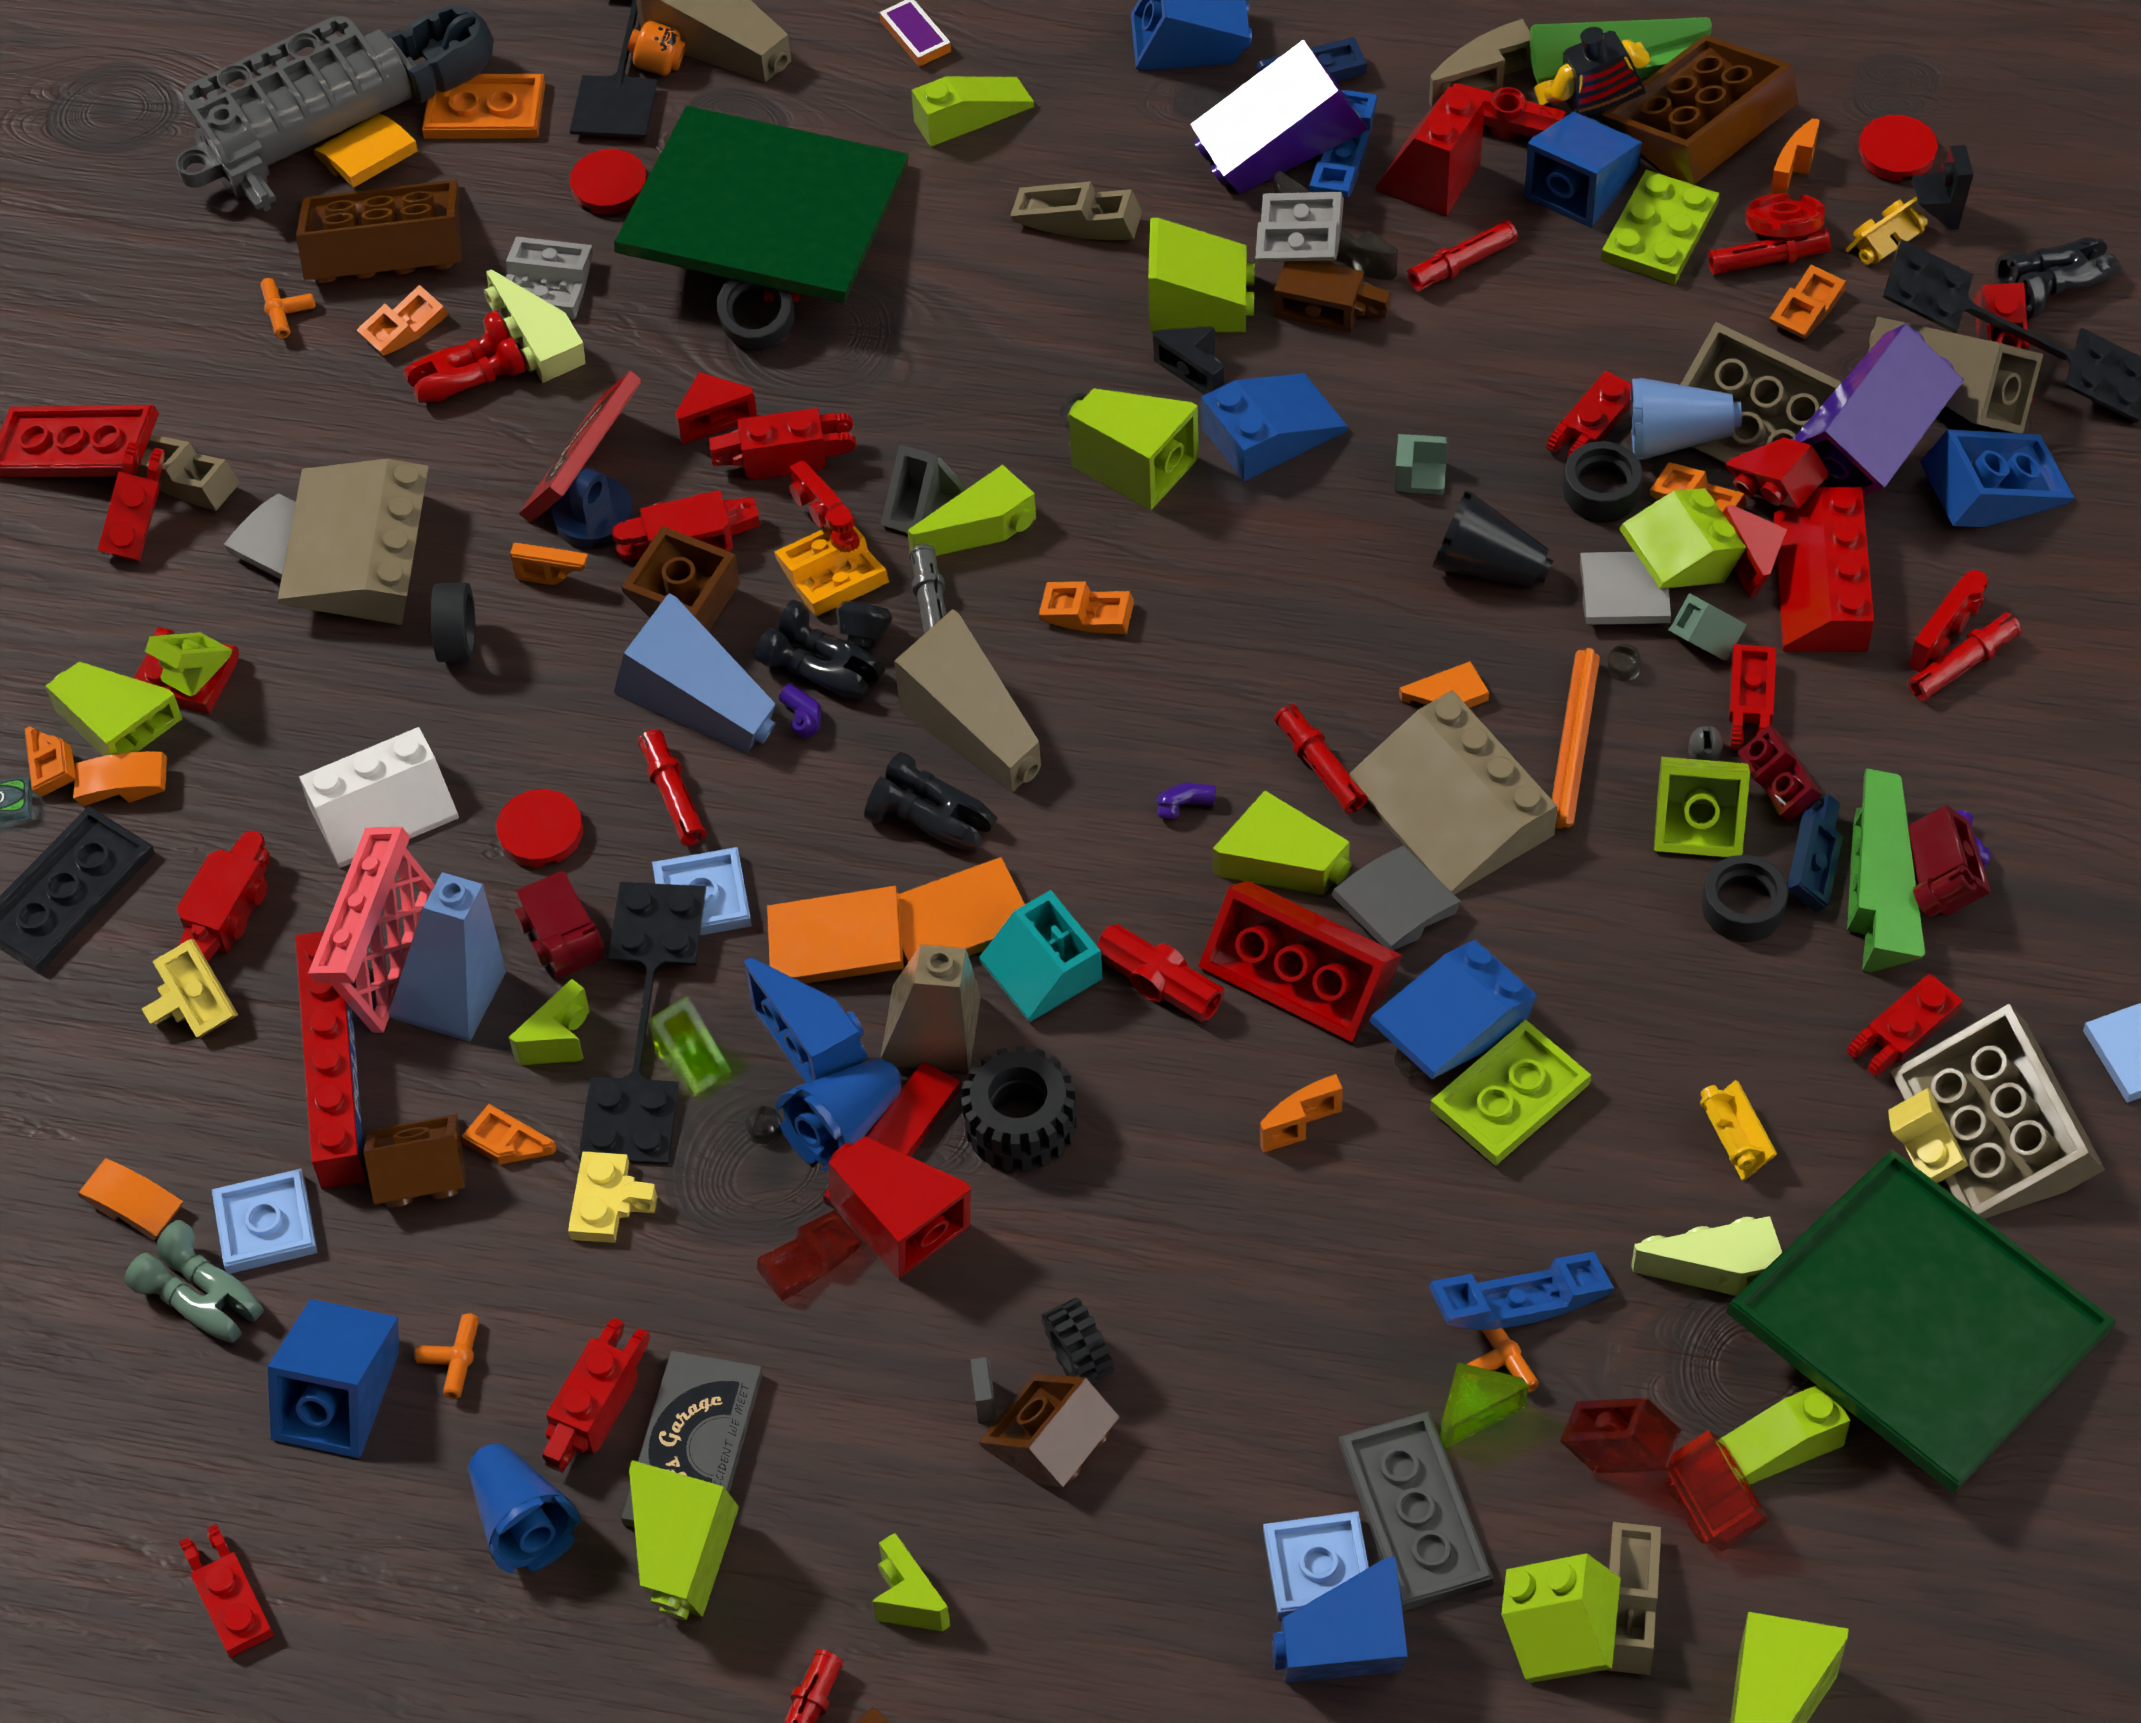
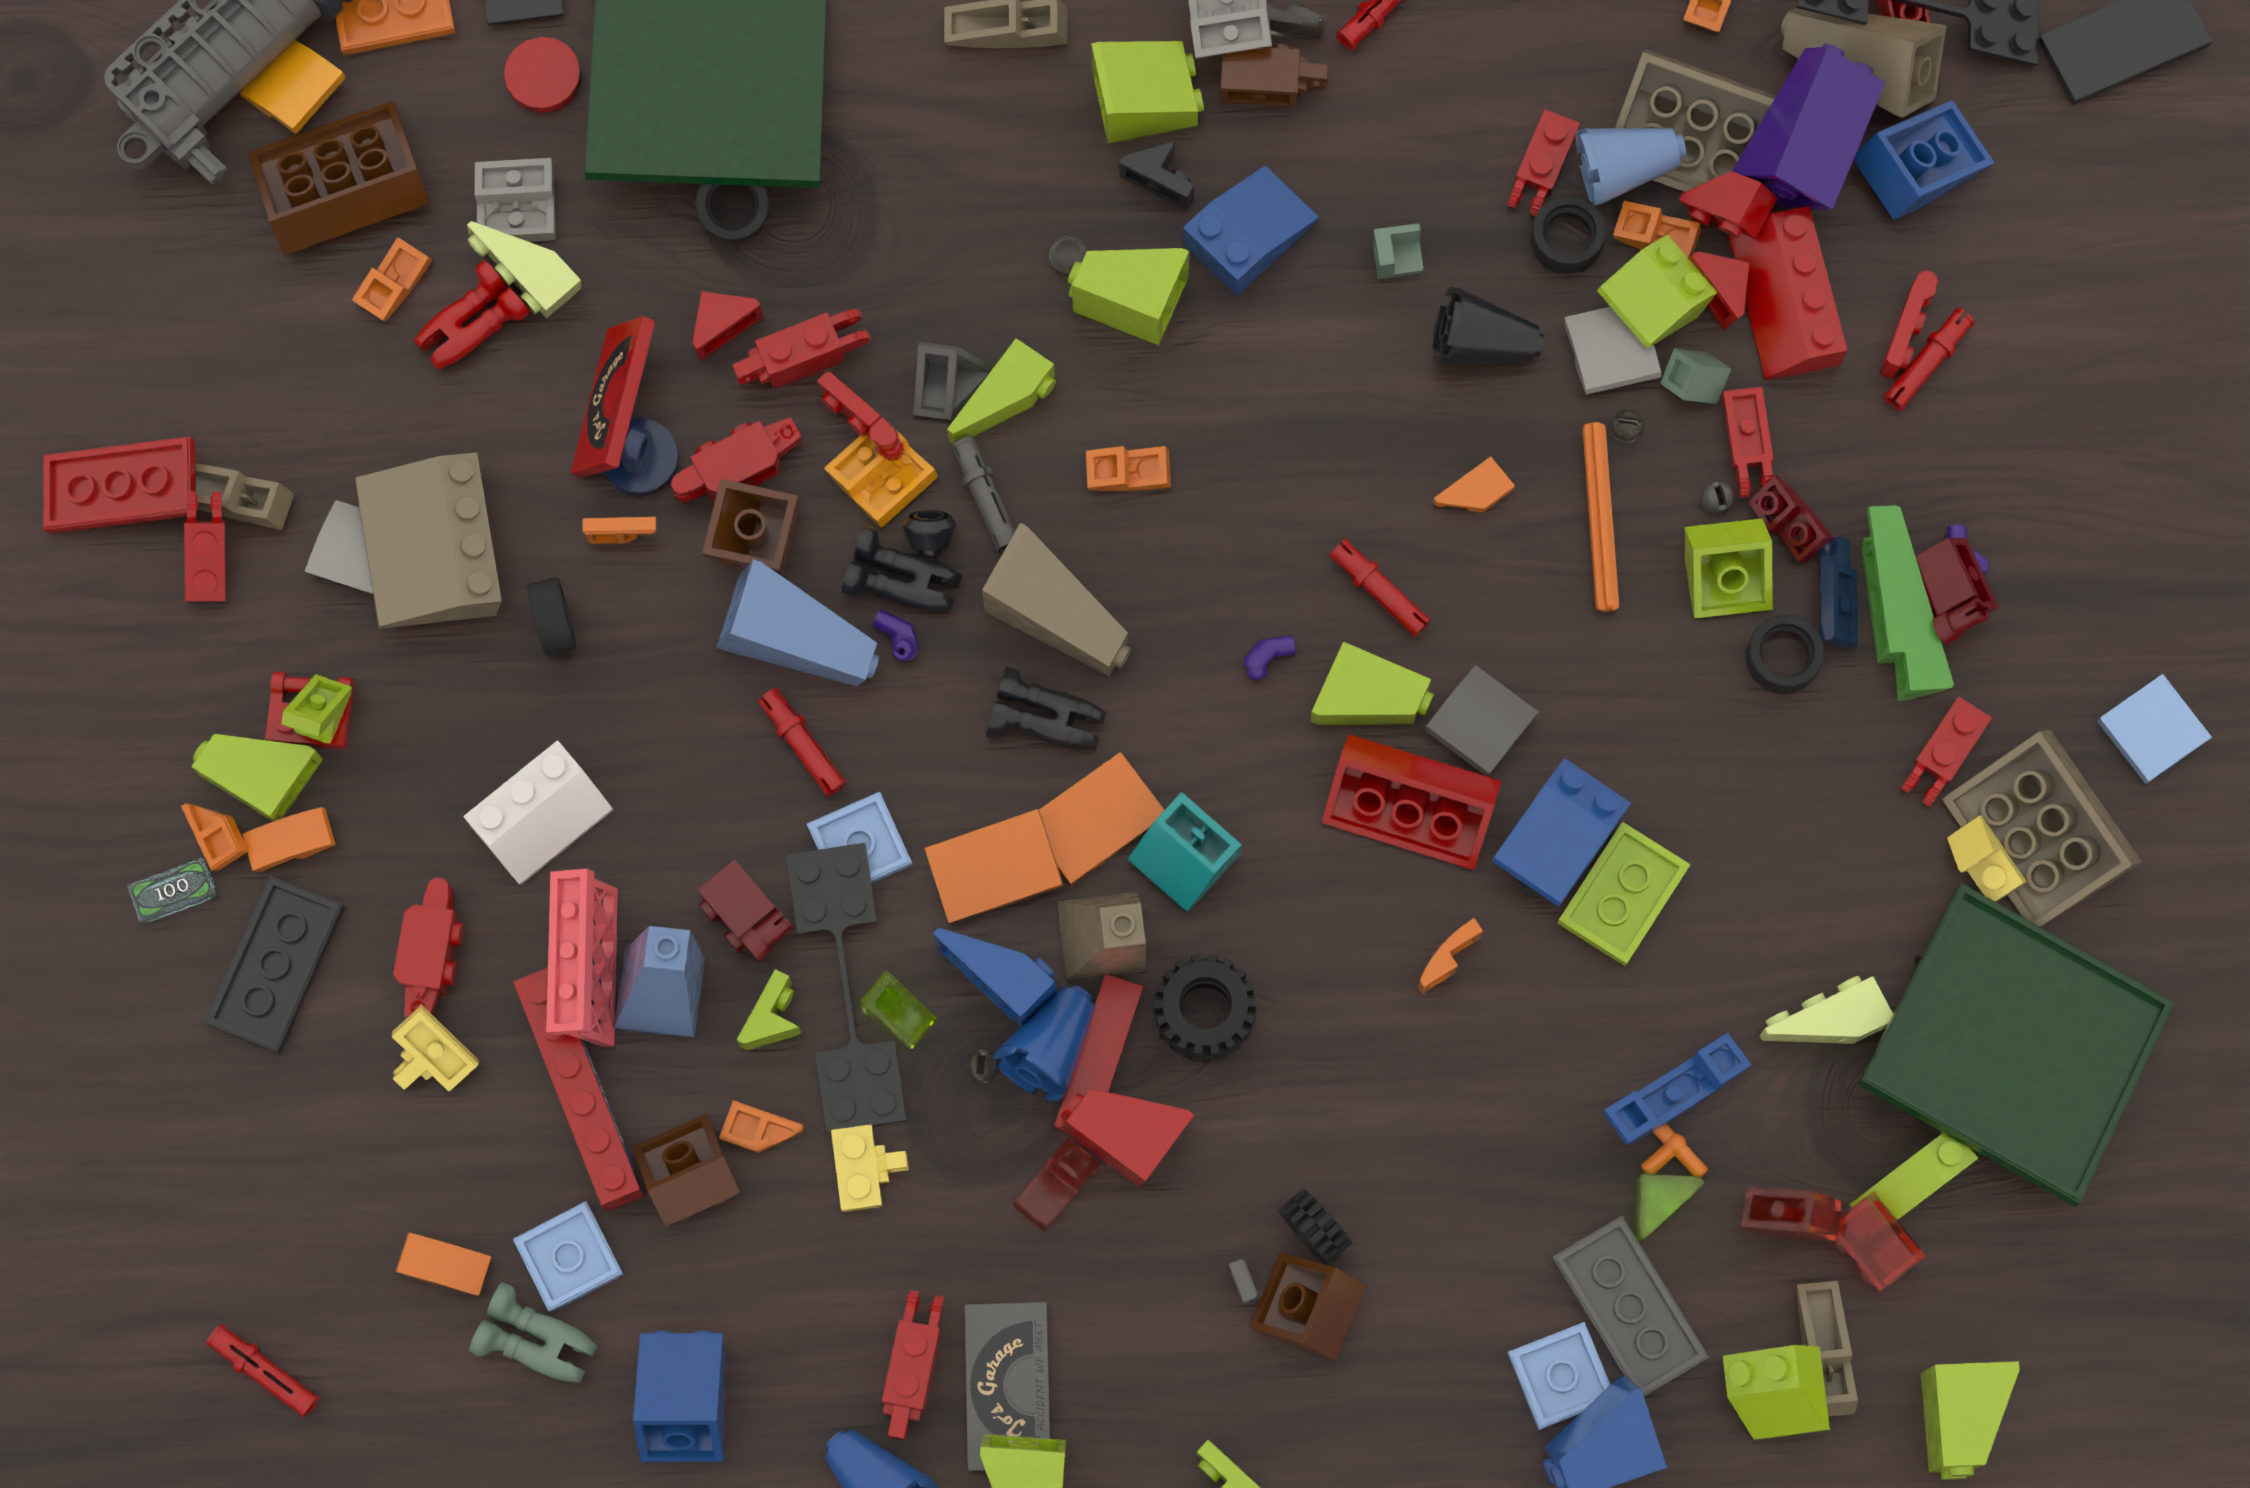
camera: 15 degrees left, 20 degrees up
(277, 308) = (265, 288): orange piece -> none
(457, 1357) = (781, 1349): orange piece -> none
(539, 827) = (692, 808): red tile -> none
(1160, 973) = (1290, 841): red piece -> none
(1455, 794) = (1507, 603): dark tan slope -> none
(1738, 1128) = (1826, 888): yellow hinge -> none

